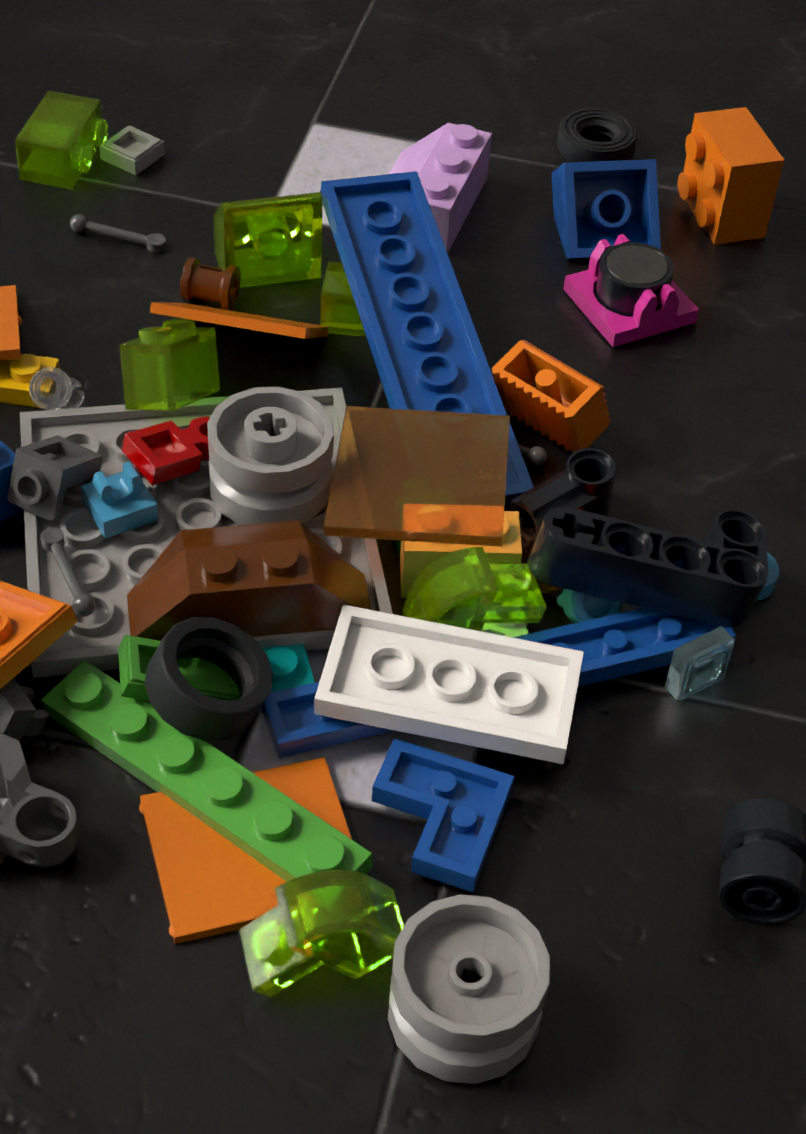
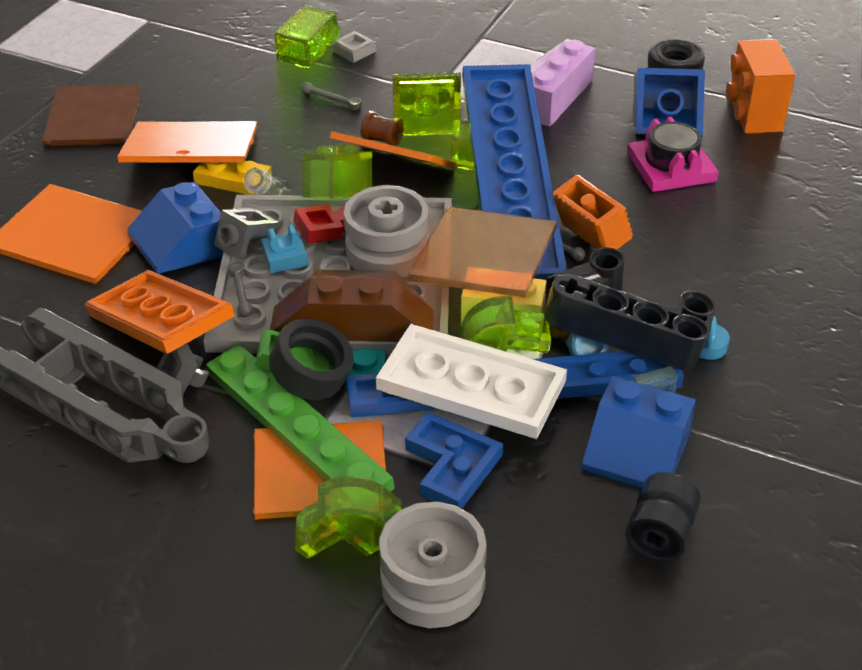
camera: 15 degrees right, 5 degrees down
(698, 735) = (638, 432): none -> blue slope

